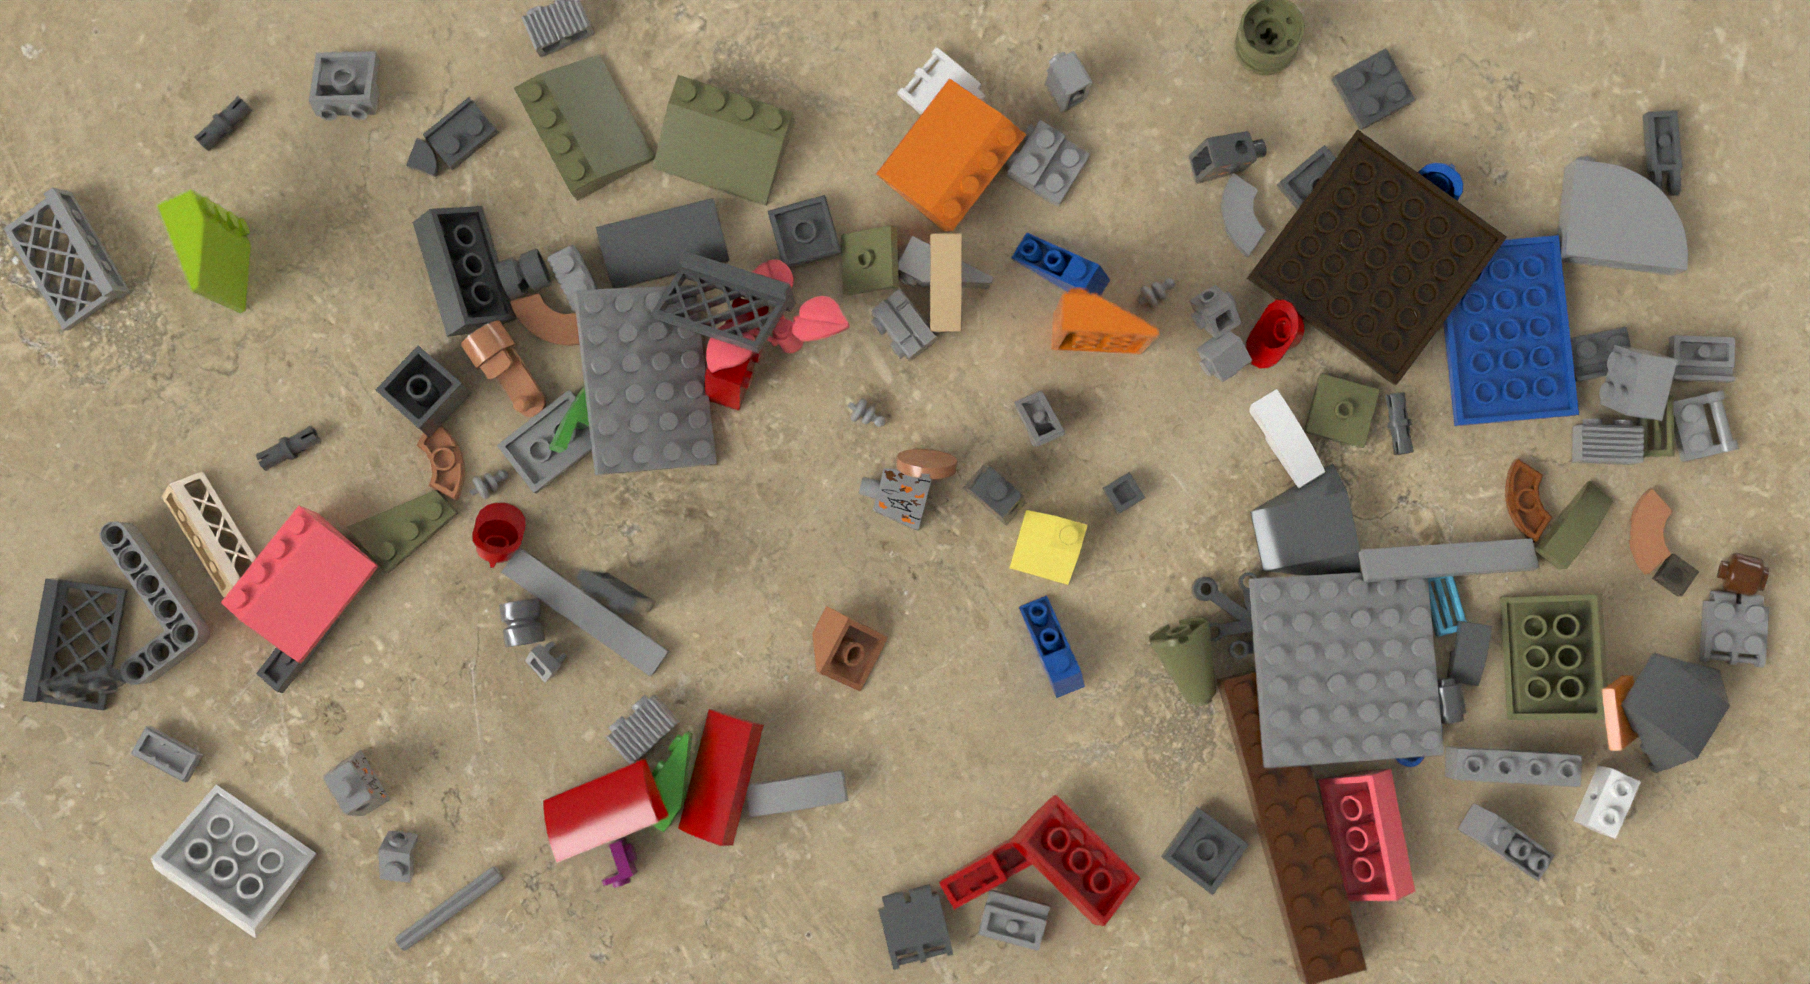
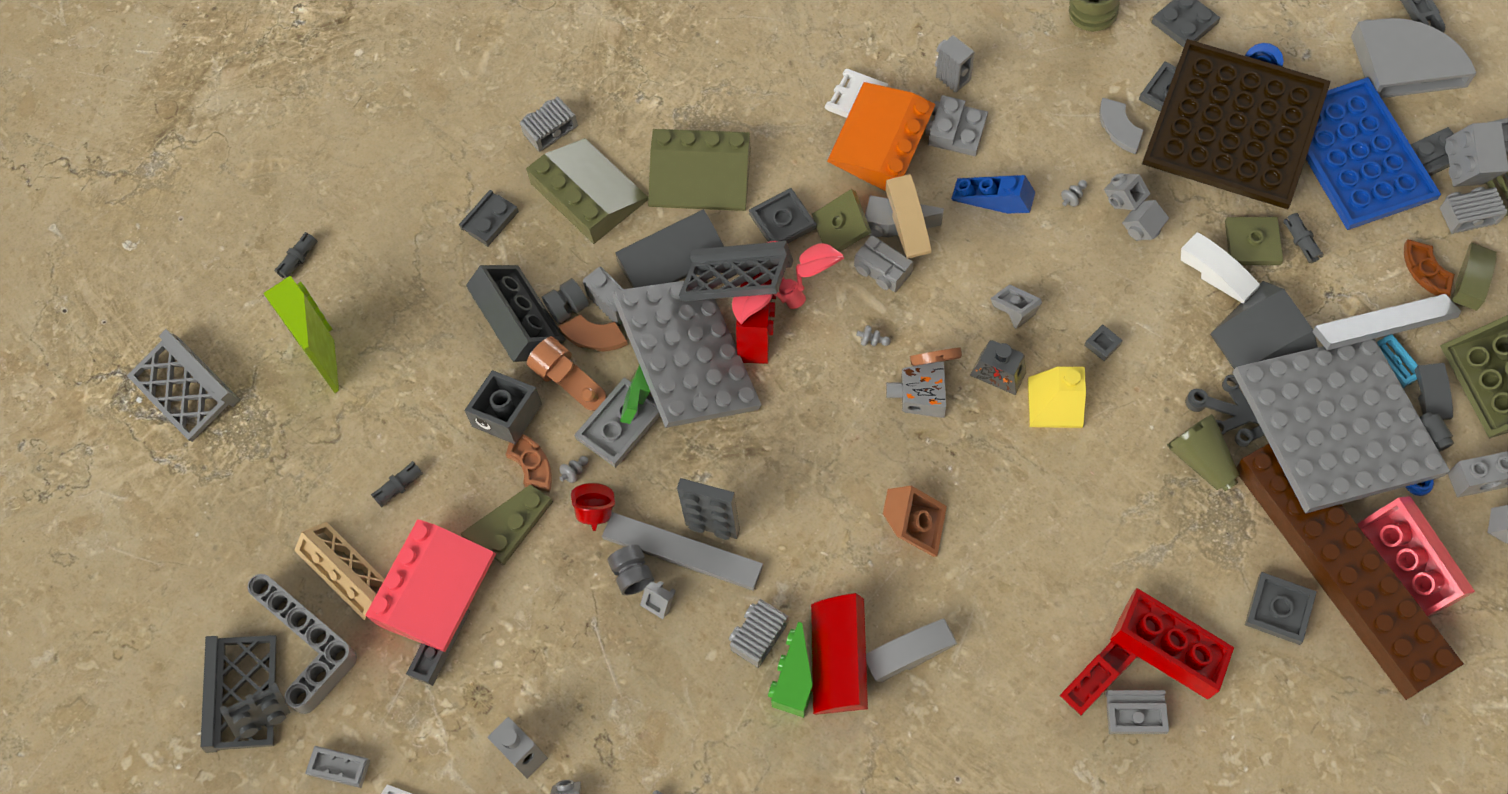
camera: 10 degrees left, 20 degrees down
(345, 85) = (389, 204): light grey plate -> none
(423, 159) = (463, 243): dark grey tile -> none
(603, 810) = (744, 707): red slope -> none
(624, 857) = (772, 746): magenta bracket -> none
(914, 925) = (1051, 741): dark grey plate -> none
(1052, 647) = (1091, 477): blue slope -> none
(1096, 325) = (1042, 213): orange slope -> none
(1225, 155) = (1091, 84): dark grey torso -> none
(1274, 334) = (1180, 194): red piece -> none

